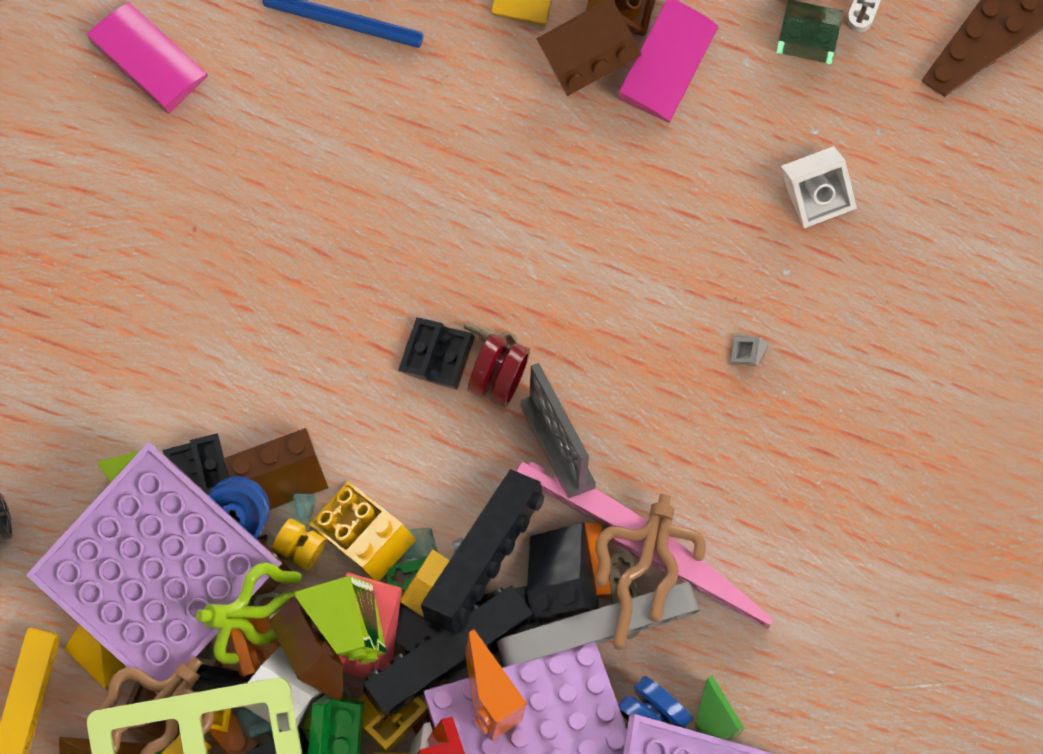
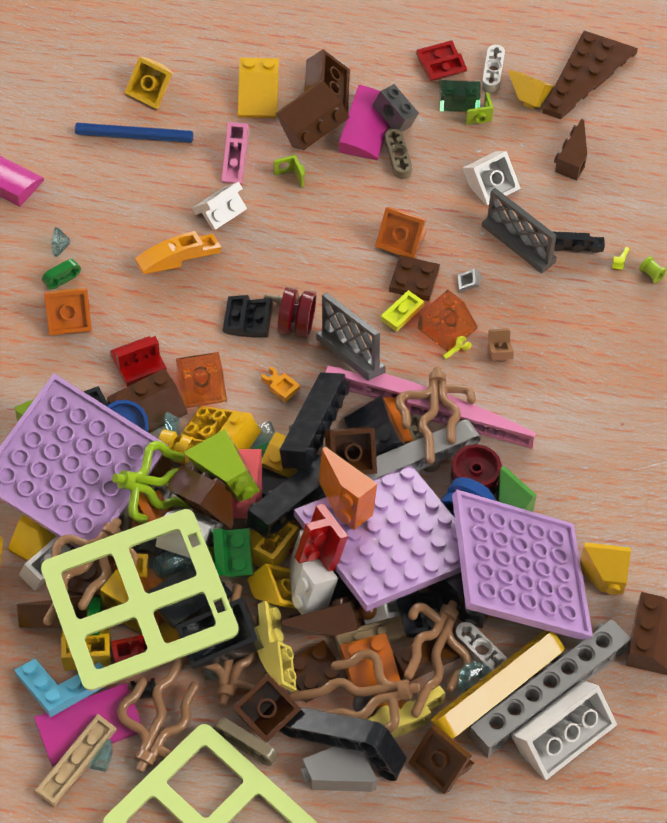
camera: 20 degrees left, 20 degrees down
(95, 690) = (31, 571): none -> white slope
(199, 308) = (68, 311): none -> orange bracket
(202, 241) = (61, 274): none -> green beam
(208, 188) = (59, 242): none -> clear light blue slope
(279, 397) = (138, 359): none -> red bracket
(353, 446) = (201, 379): none -> clear orange slope
(361, 234) = (173, 251): none -> light orange slope
(434, 168) = (221, 206): none -> white bracket
(459, 474) = (281, 386): none -> light orange plate
(473, 82) = (235, 152): none -> bright pink slope
(516, 616) = (354, 446): none -> reddish brown slope
(547, 113) = (293, 165): none -> lime bracket
(644, 385) = (402, 311): none -> neon yellow plate
(669, 263) = (400, 232): none -> orange bracket
(672, 646) = (479, 464): none -> dark red wheel
(674, 331) = (414, 275): none -> reddish brown plate
(700, 415) = (446, 320): none -> clear orange slope
(707, 100) = (397, 160): none -> dark tan beam
(707, 455) = (458, 346): none -> neon yellow hand
(710, 50) = (395, 108): none -> dark grey brick
(762, 467) = (499, 344): none -> medium nougat bracket
(832, 78) = (481, 115): none -> lime bracket
(832, 294) = (511, 234): none -> dark grey fence
(909, 317) = (578, 242): none -> black hinge
(912, 40) = (530, 89): none -> yellow slope
(945, 170) = (574, 153): none -> reddish brown slope
(961, 358) = (618, 262): none -> neon yellow hand
(1004, 382) = (651, 268): none -> lime bush

